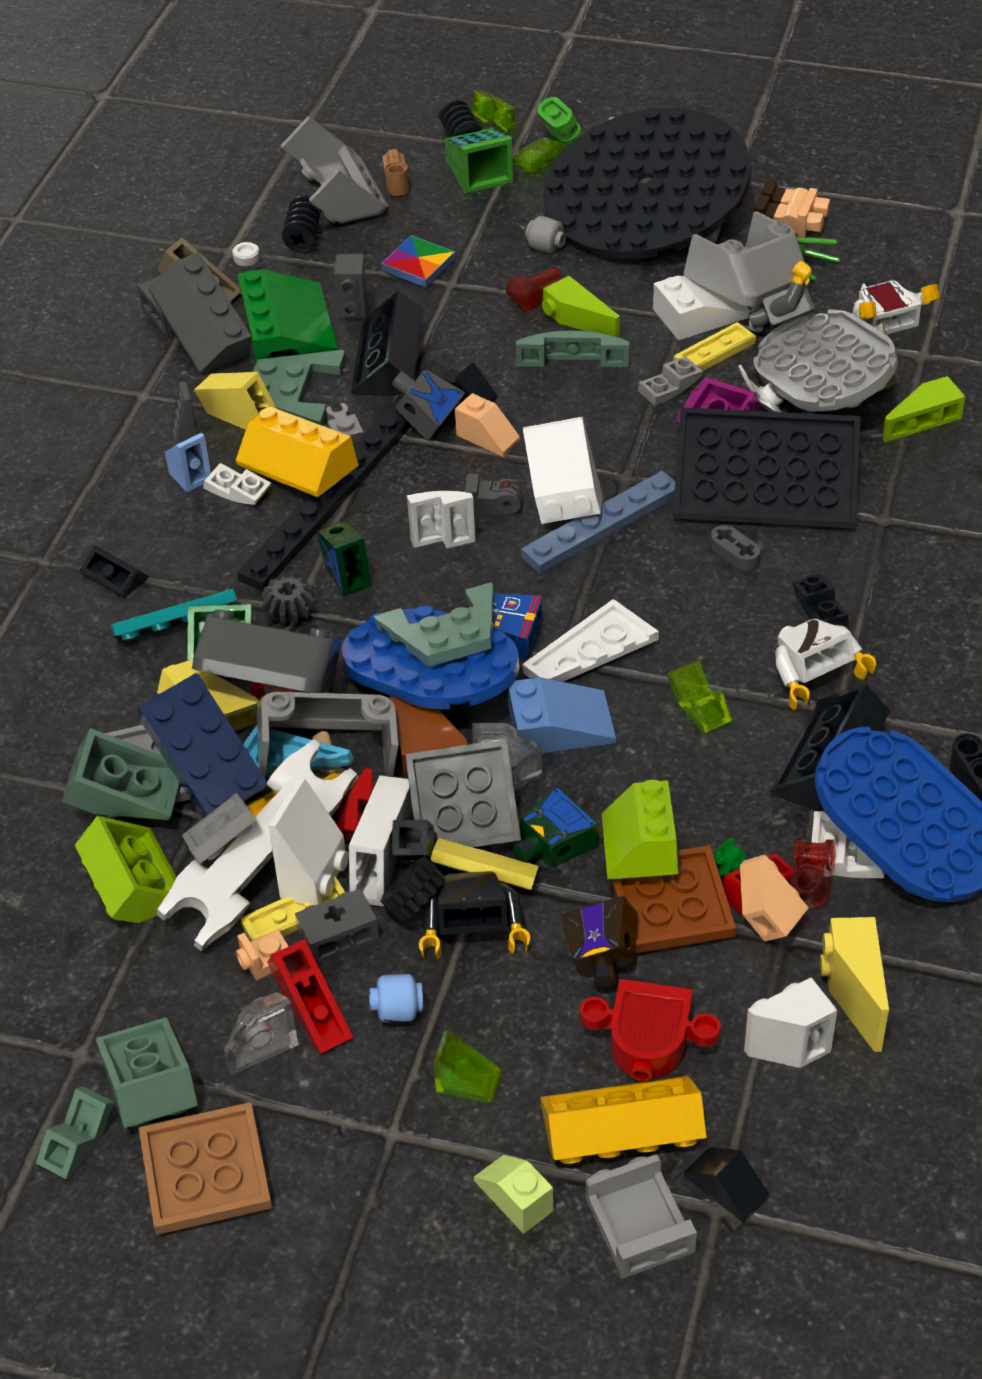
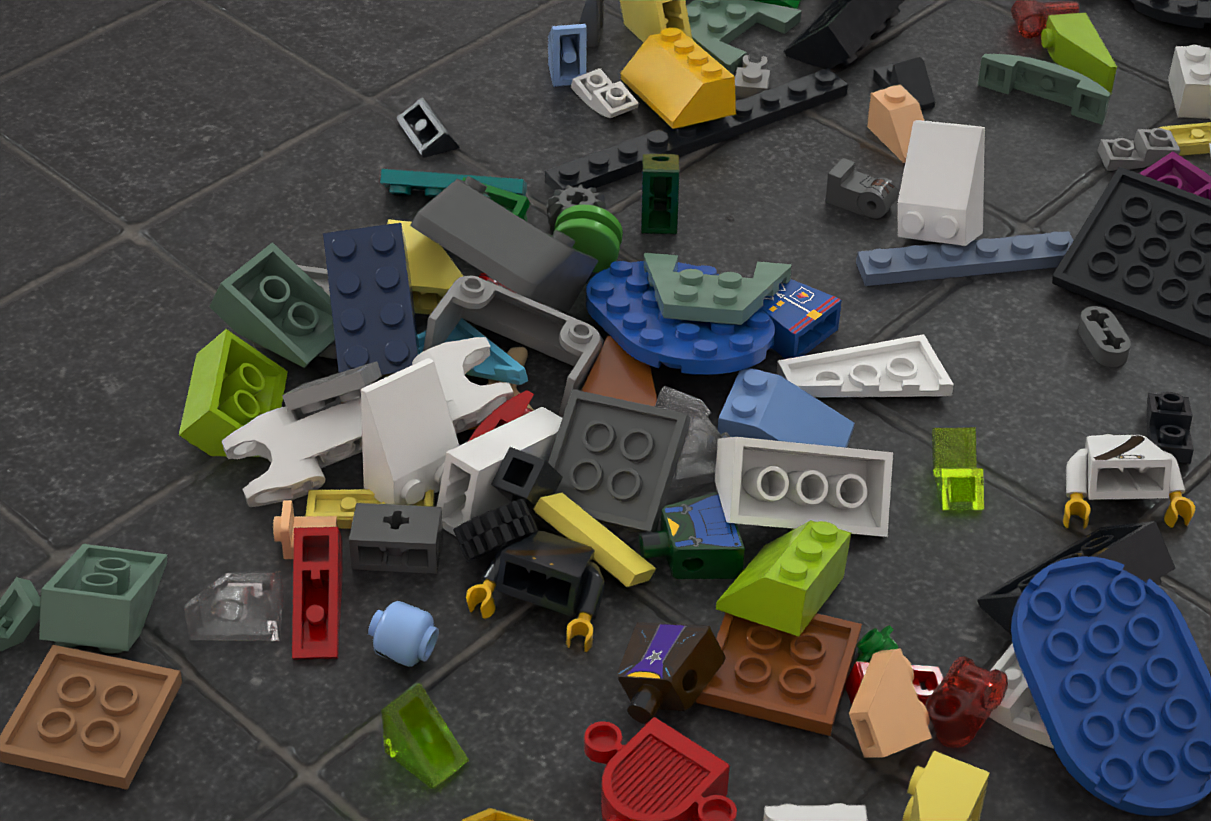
camera: 25 degrees right, 5 degrees down
(317, 611) = (595, 232): none -> bright green head
(426, 401) = (848, 78): dark grey torso -> none
(441, 517) = (785, 189): white slope -> none
(609, 758) = (802, 482): none -> white slope

